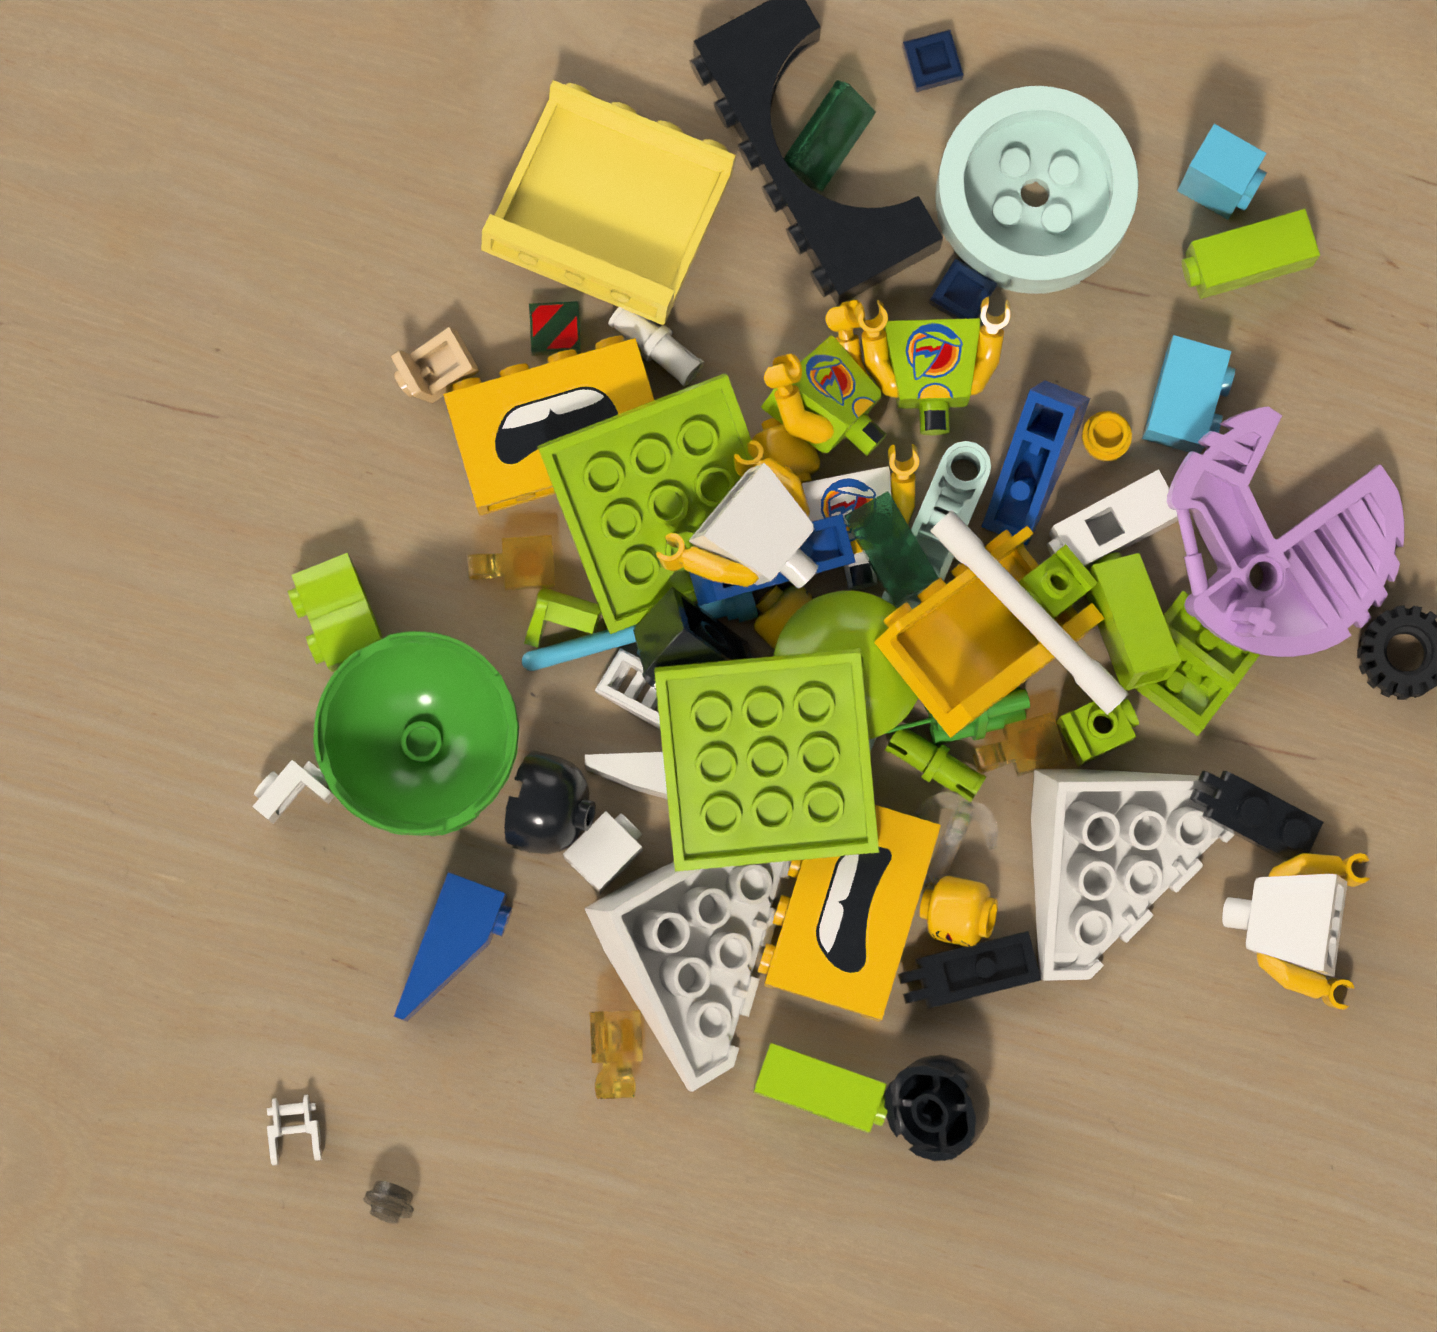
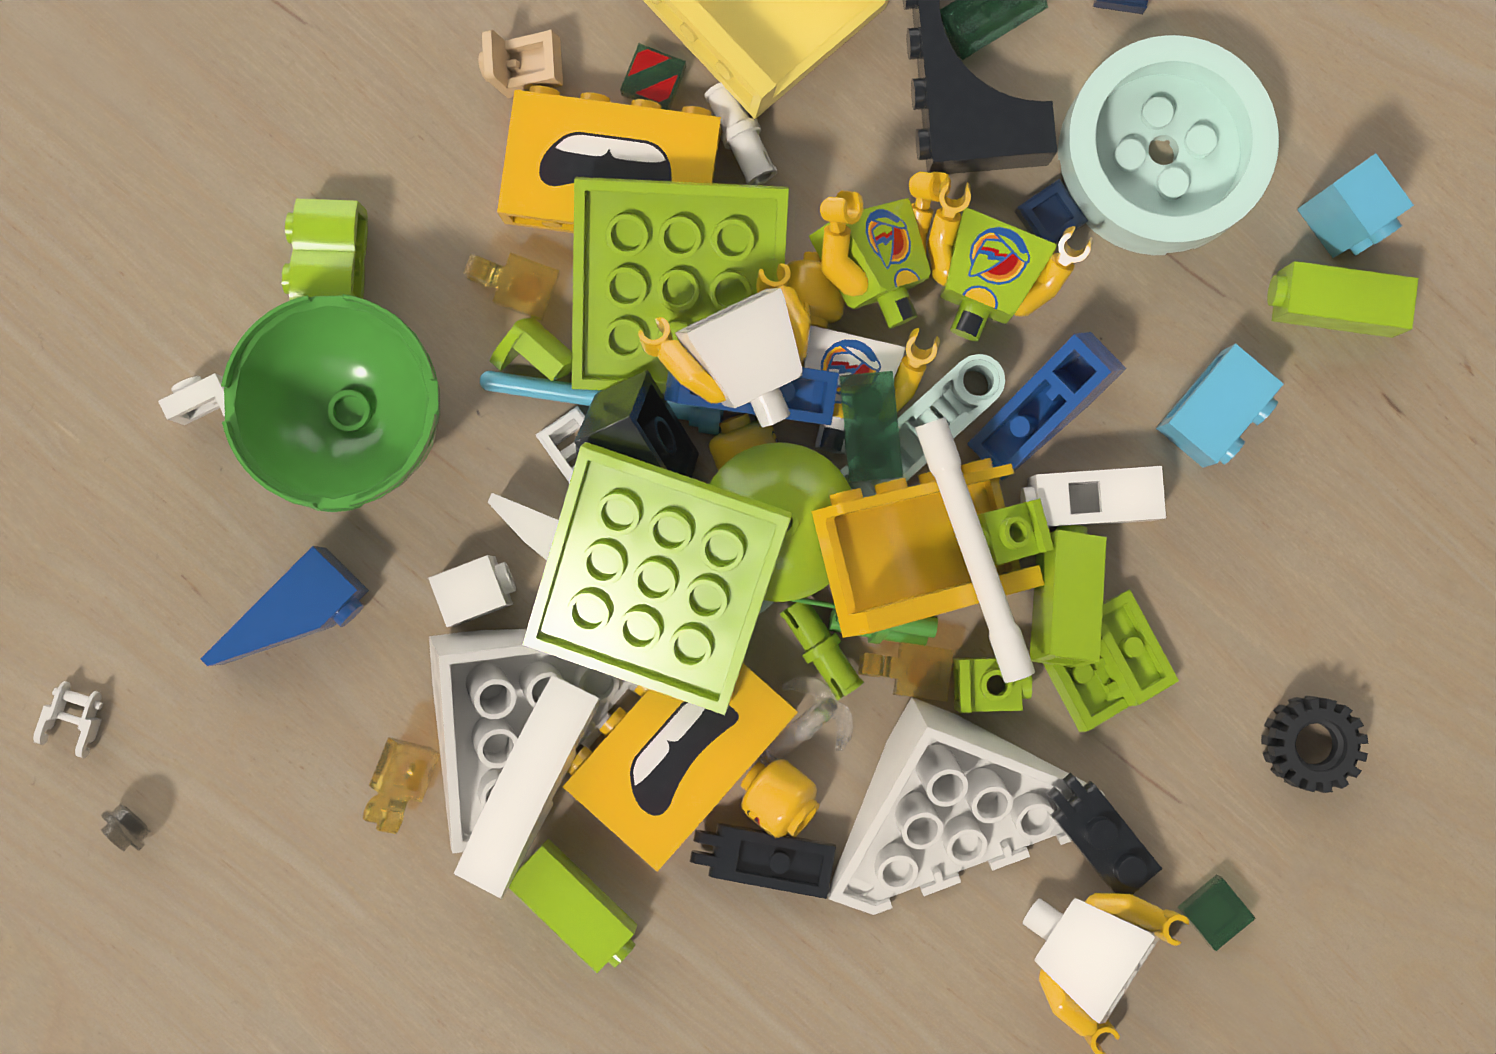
camera: 25 degrees right, 5 degrees up
(550, 805) = (434, 526): black cylinder -> none
(734, 996) = (526, 786): none -> white slope
(938, 1106) = (674, 978): black cylinder -> none
(1106, 436) = (1124, 411): yellow plate -> none
(1314, 575) = (1261, 632): lavender piece -> none
(1390, 840) = (1216, 912): none -> clear green tile

